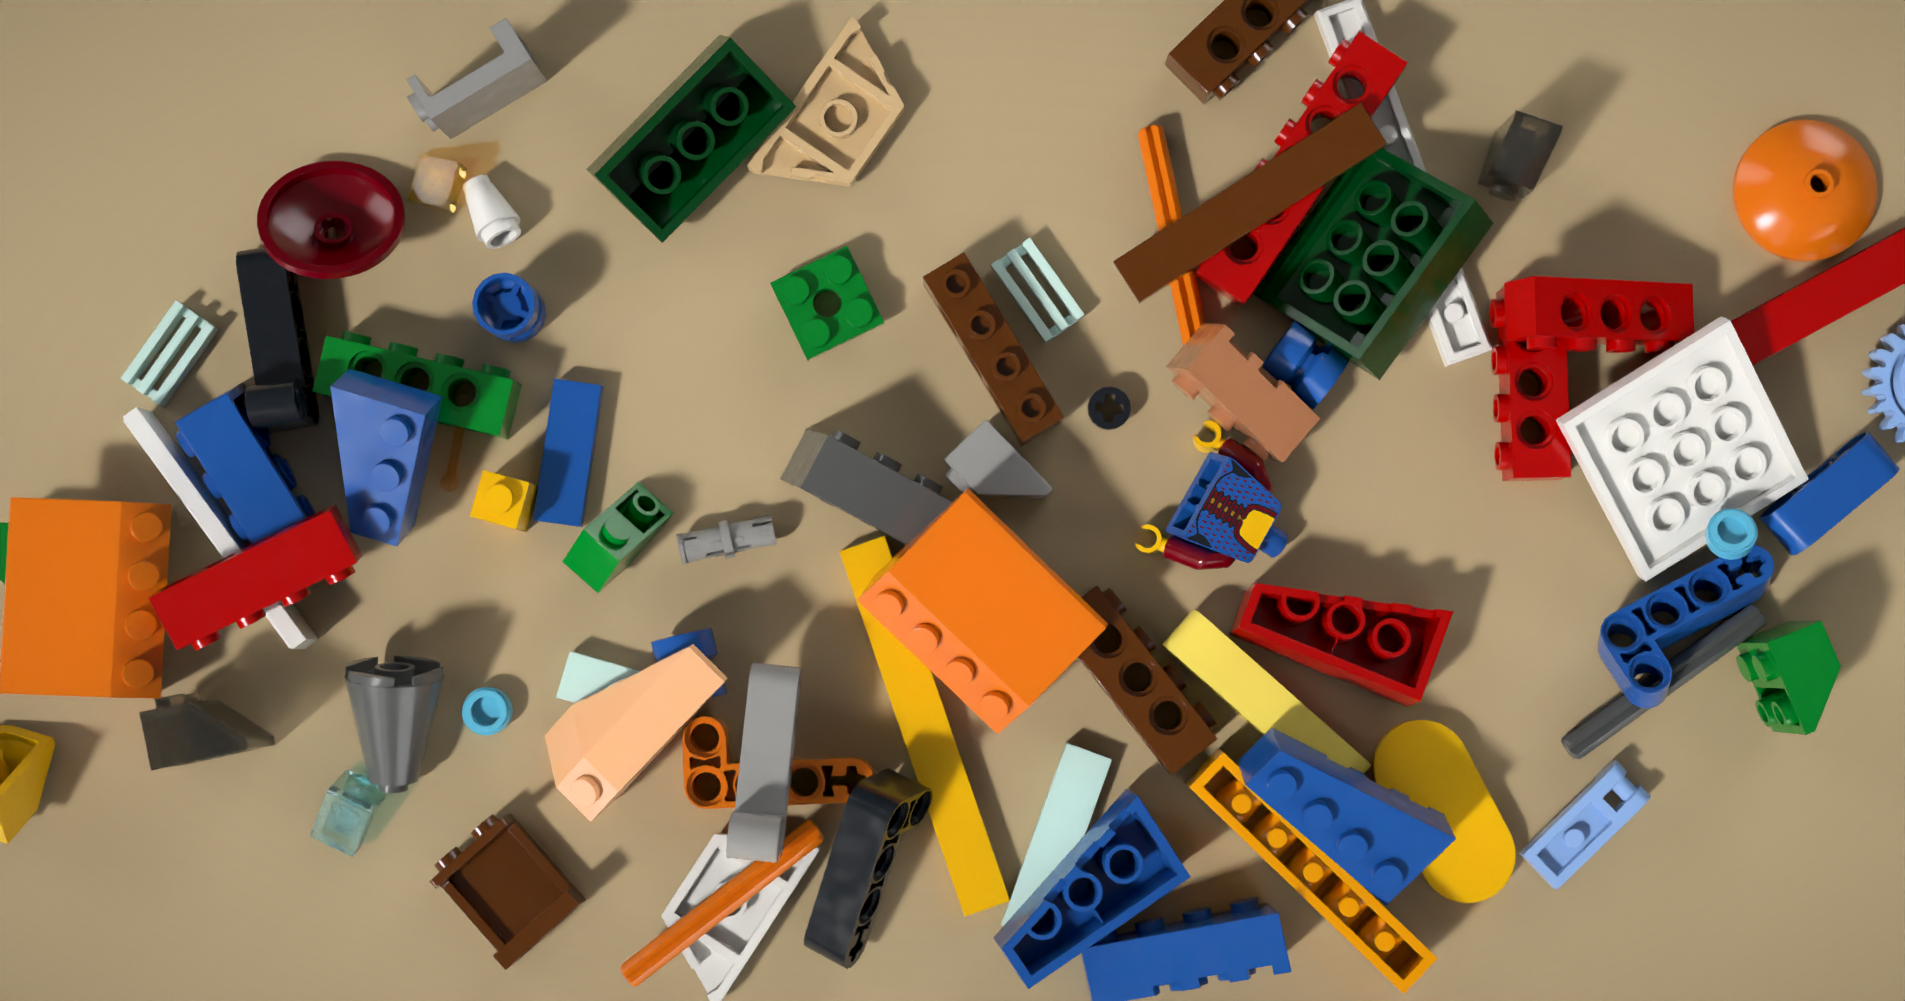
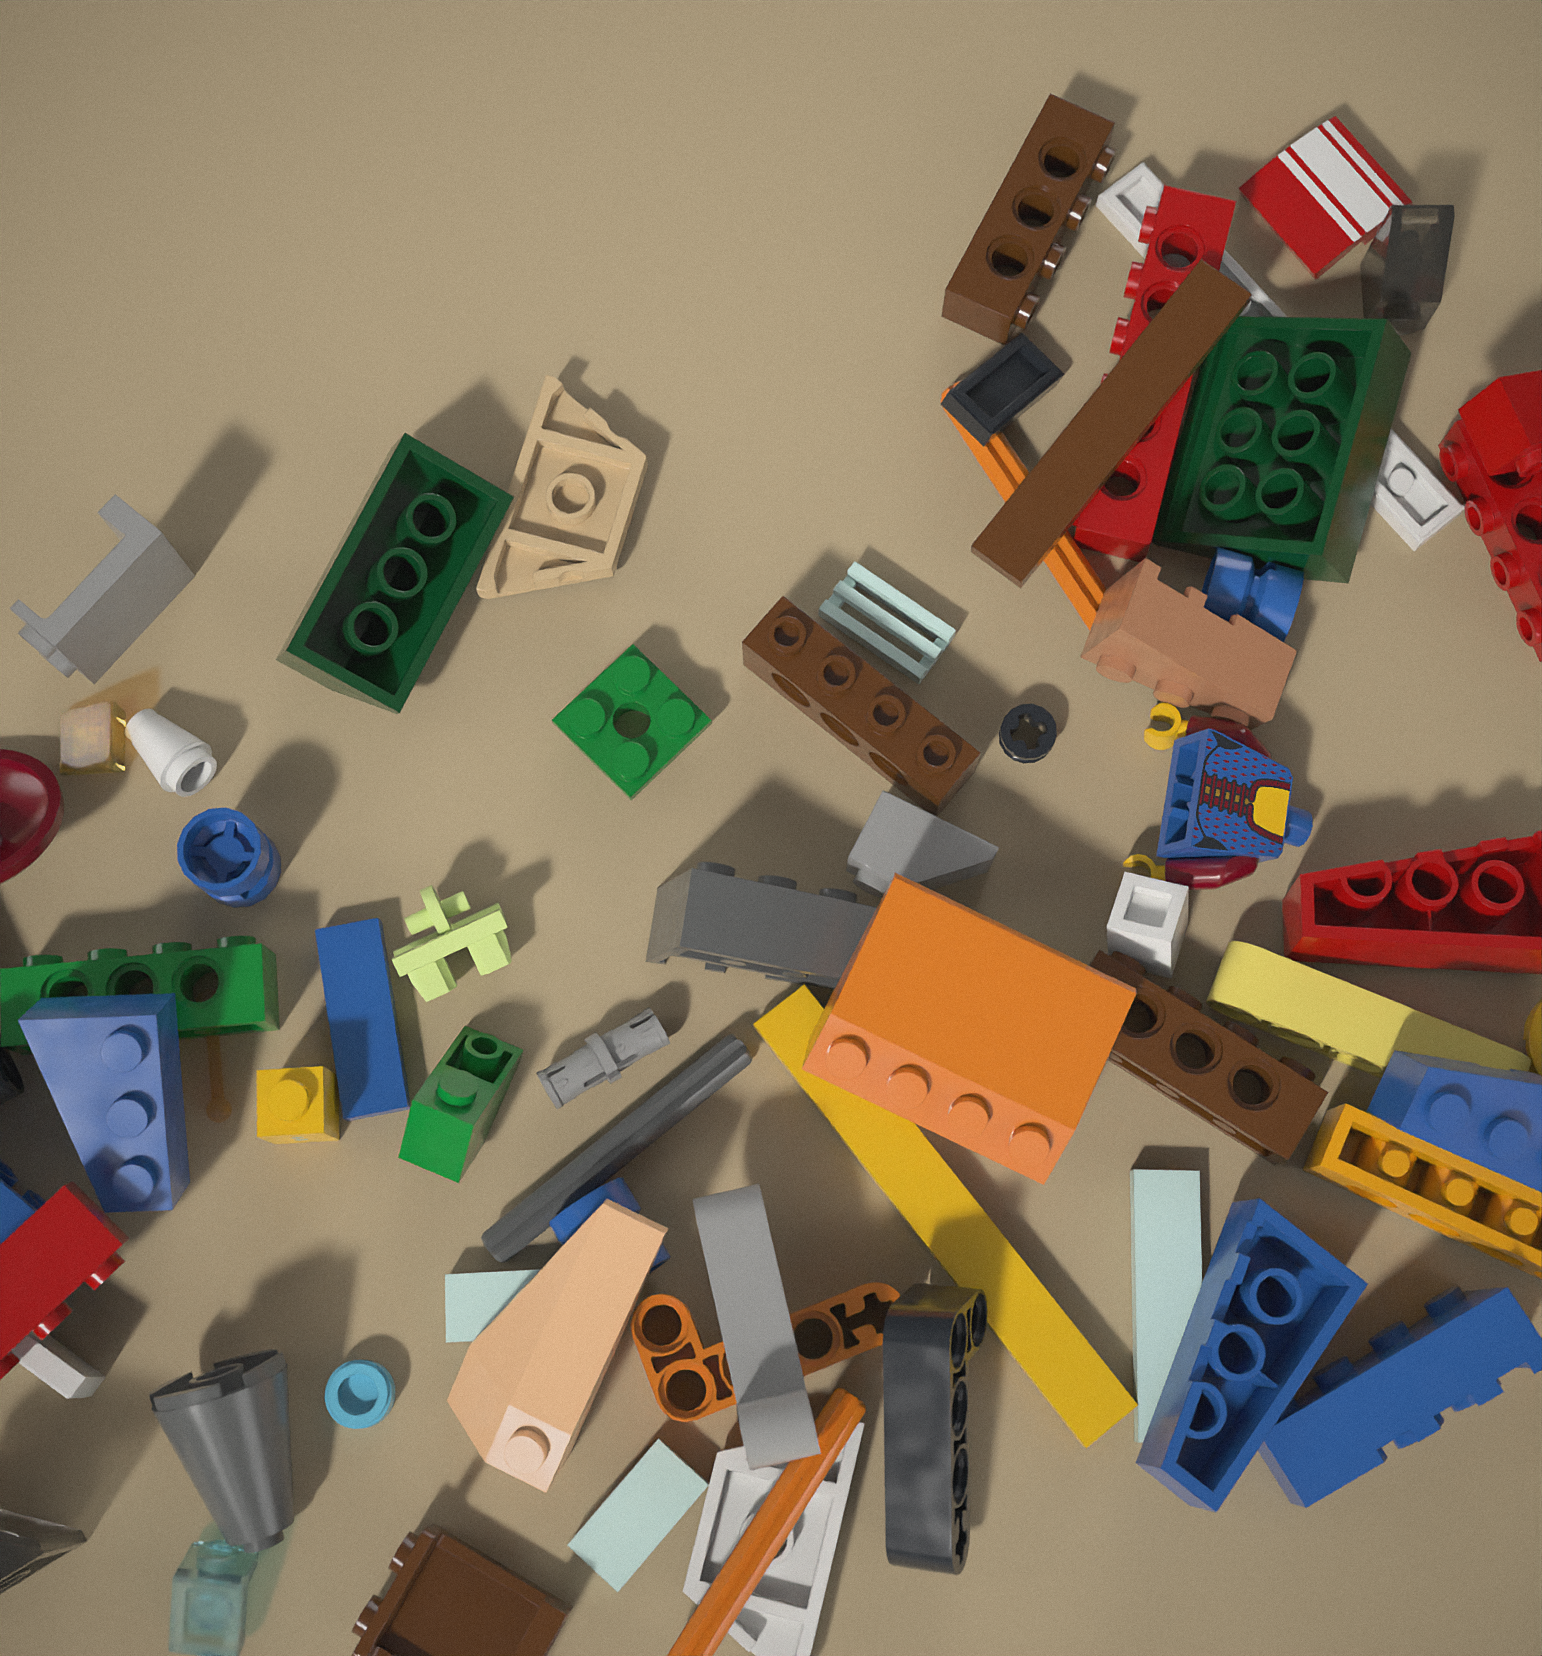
camera: 20 degrees left, 10 degrees down
(625, 424) = (425, 957): none -> yellowish green hips
(649, 855) = (638, 1514): none -> light aqua tile
(716, 604) = (617, 1147): none -> dark grey axle
(1140, 577) = (1149, 922): none -> white panel
(1185, 142) = (1002, 389): none -> black tile
(1487, 70) = (1323, 196): none -> red slope

